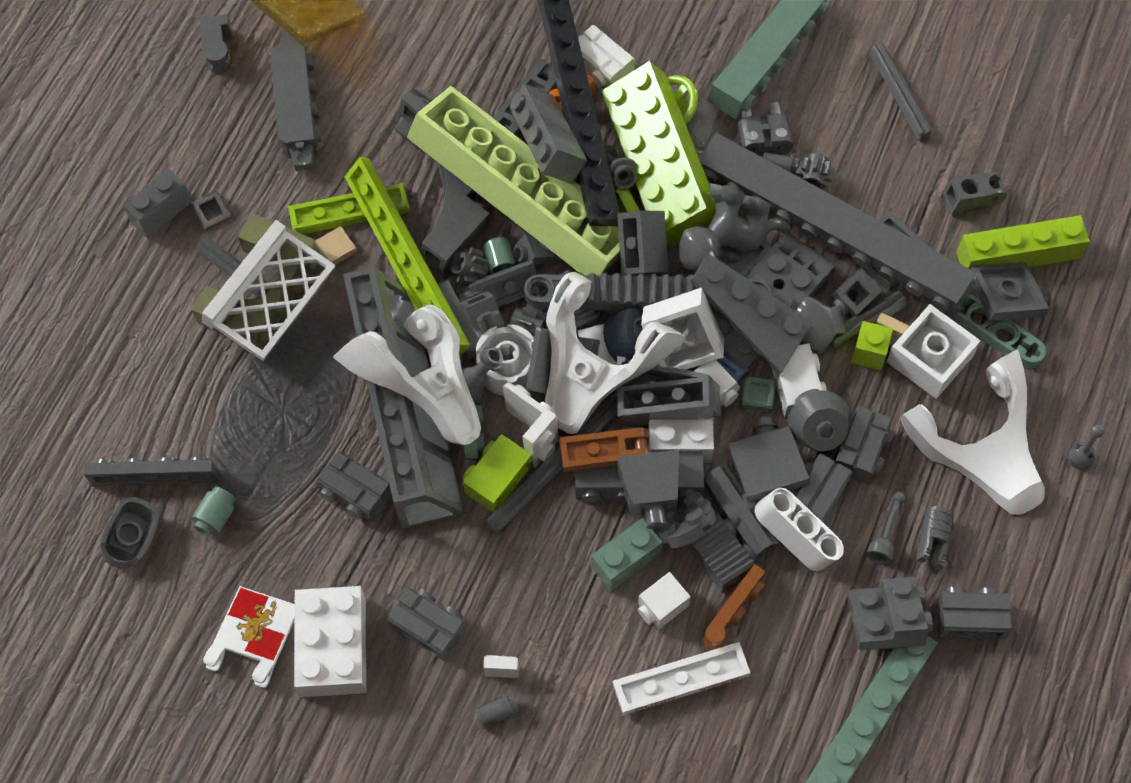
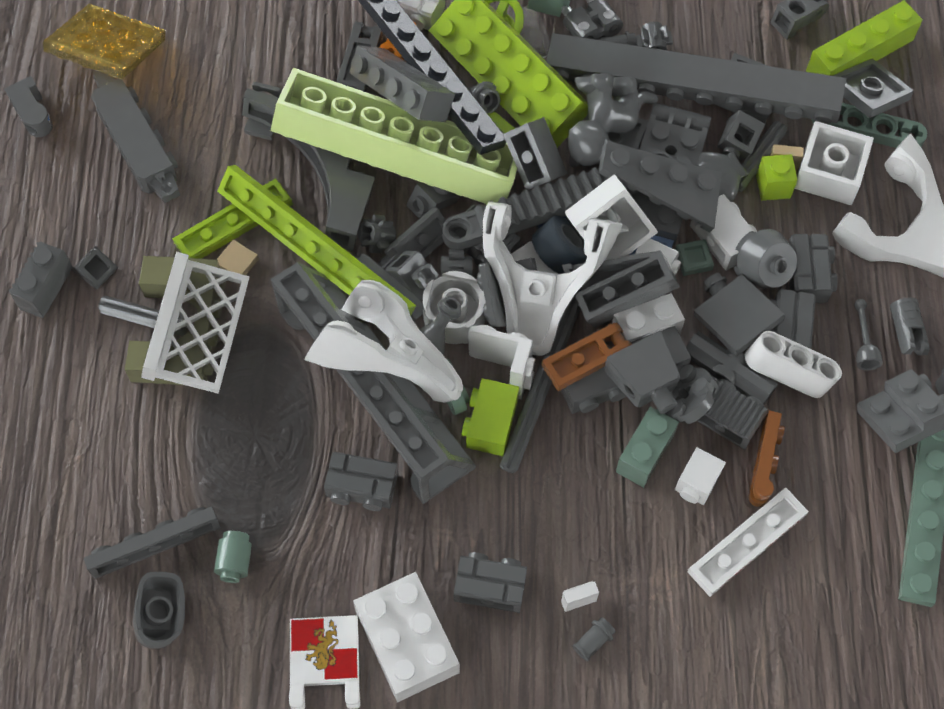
camera: 25 degrees left, 0 degrees up
(498, 254) = (400, 213): sand green beam -> none

